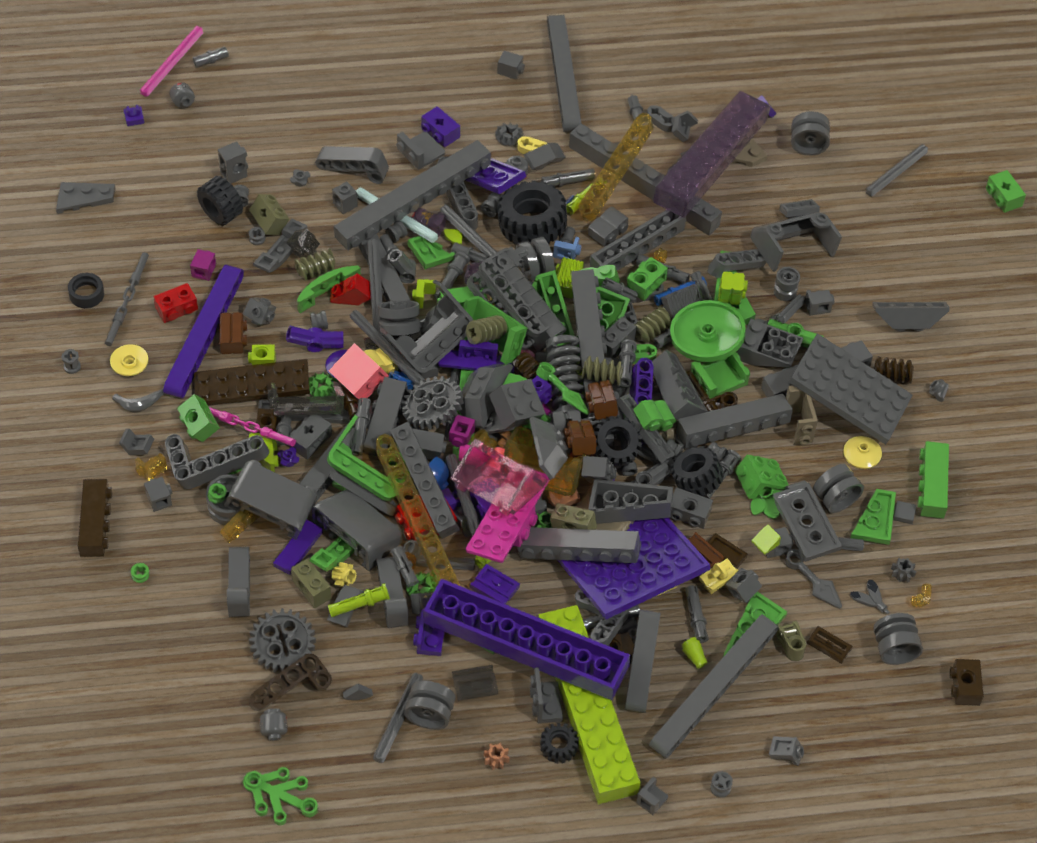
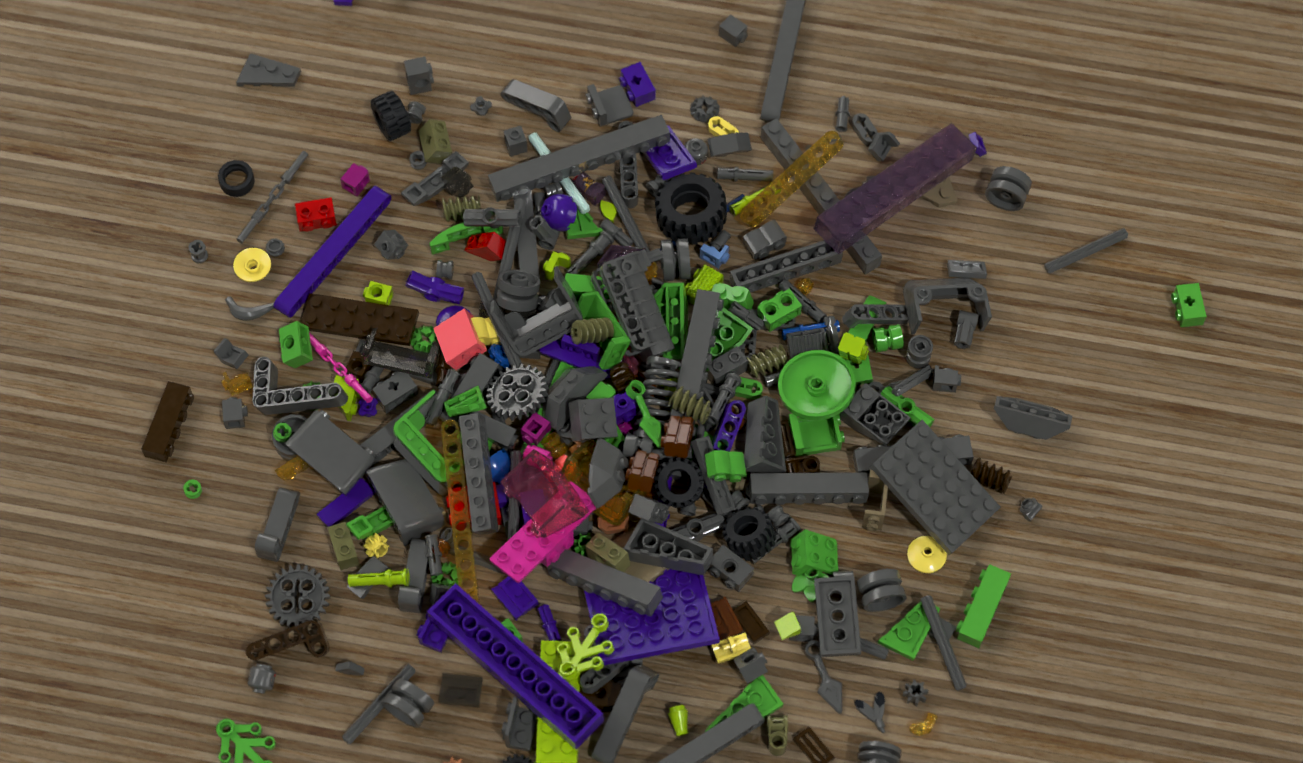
camera: 20 degrees right, 10 degrees up
(145, 340) = (275, 247): none -> dark grey plate
(232, 333) = (358, 261): reddish brown brick -> none
(362, 258) = (503, 217): none -> dark grey piece
(389, 420) = (466, 402): none -> bright green wing
(412, 243) = (559, 211): none -> dark purple cylinder
(537, 601) = (549, 623): none -> dark purple axle
(582, 625) = (584, 650): none -> lime plant
(698, 621) = (694, 688): dark grey pin -> none
(757, 278) = (887, 338): none -> bright green wheel
(819, 256) = (966, 325): none -> dark grey piece
(912, 521) = (943, 642): none -> dark grey axle

